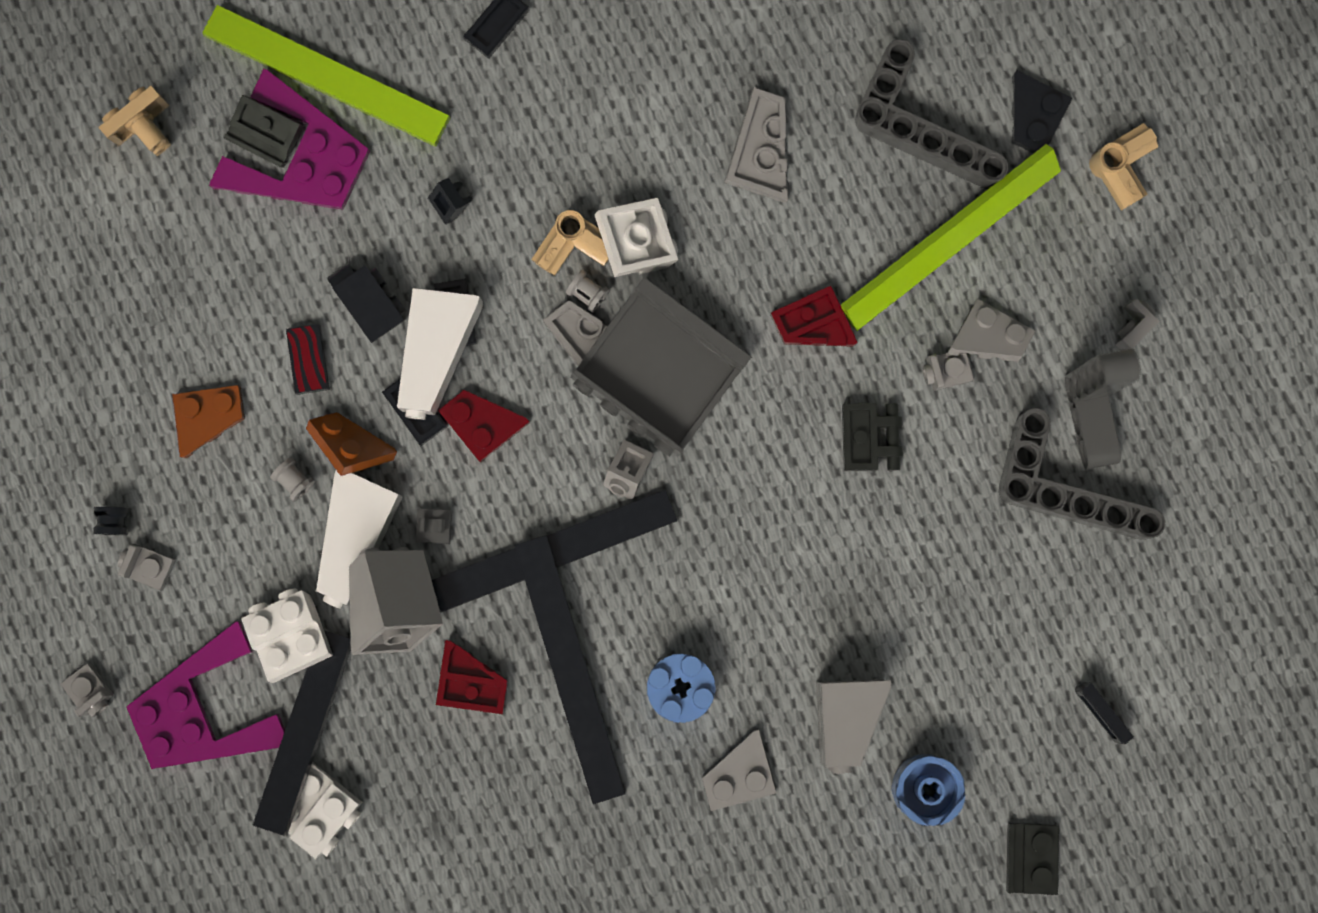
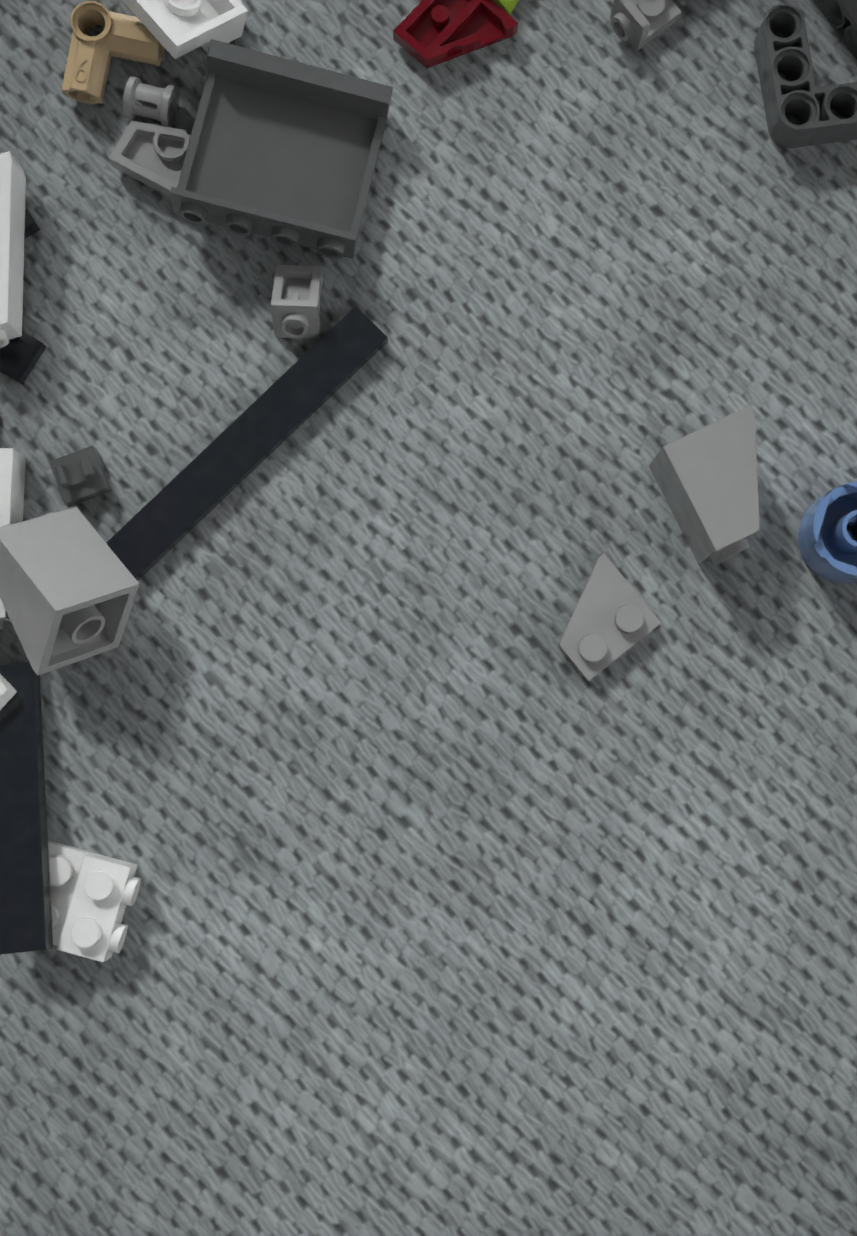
camera: 25 degrees left, 0 degrees up
(469, 682) = (209, 652): dark red wing -> none
(481, 423) = (87, 322): dark red wing -> none
(569, 669) = (330, 579): black tile -> none
(698, 696) = (483, 513): medium blue brick -> none
(861, 441) = (573, 140): pearl dark grey plate -> none

